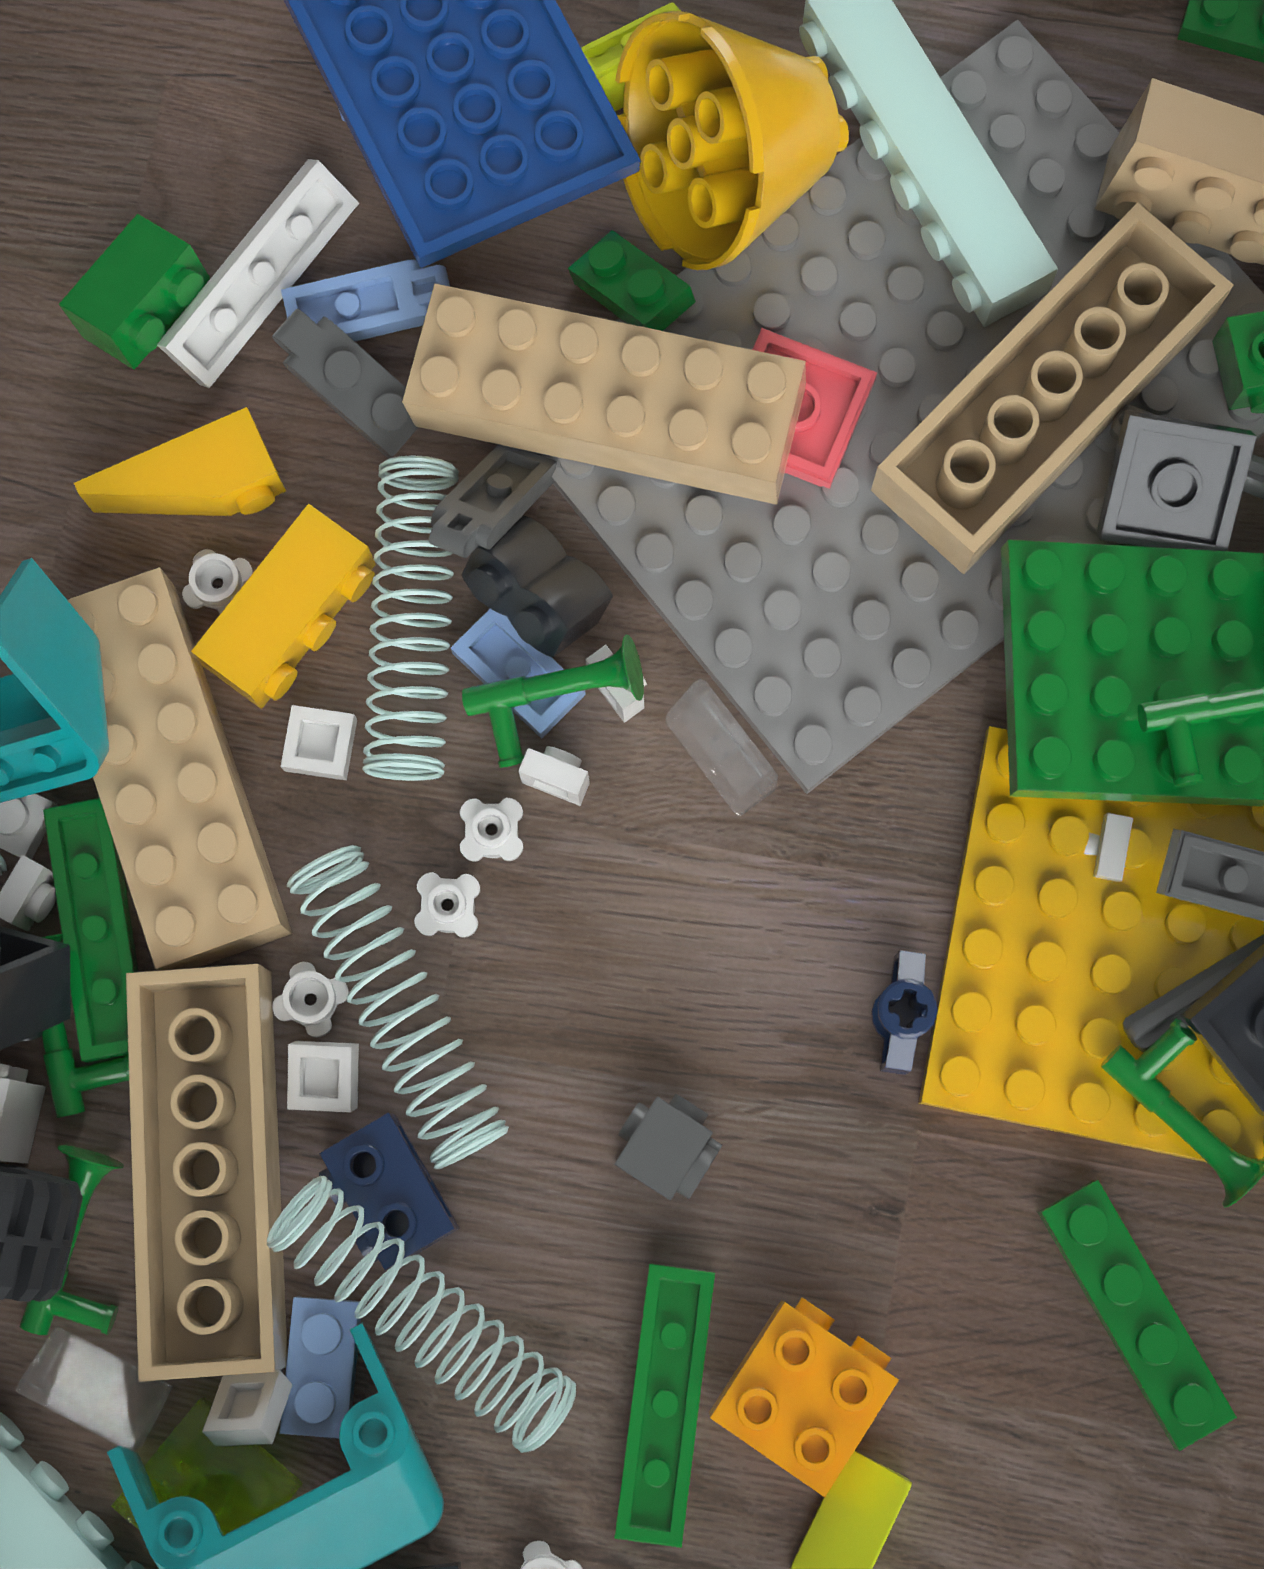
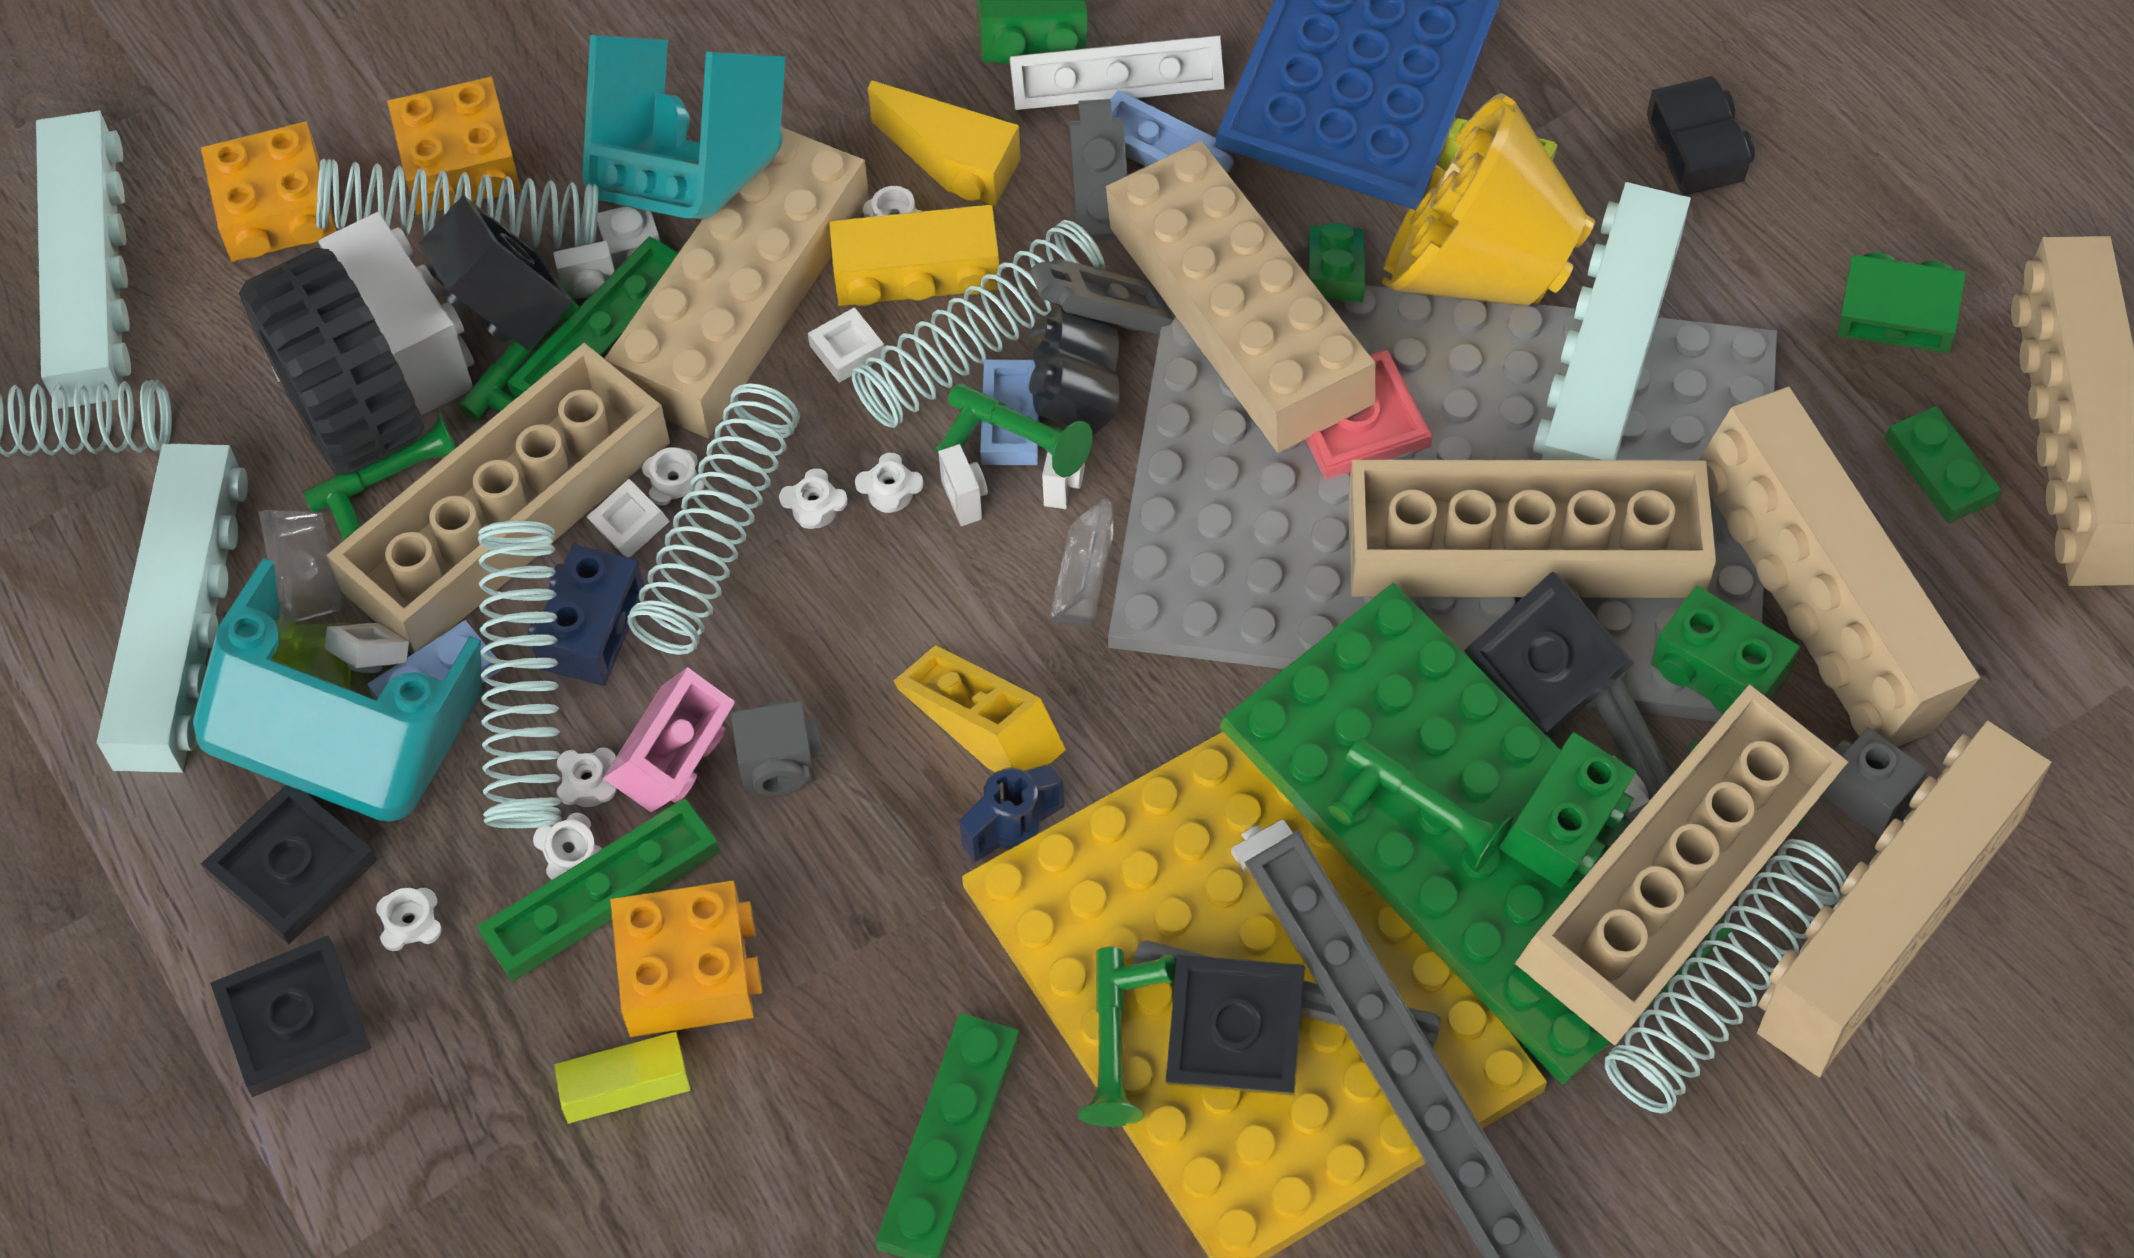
camera: 45 degrees right, 20 degrees down
(564, 1321) = (589, 791): none -> white plate
(588, 1233) = (670, 741): none -> bright pink brick
(618, 1389) = (551, 840): none -> white plate
(786, 955) = (982, 711): none -> yellow slope

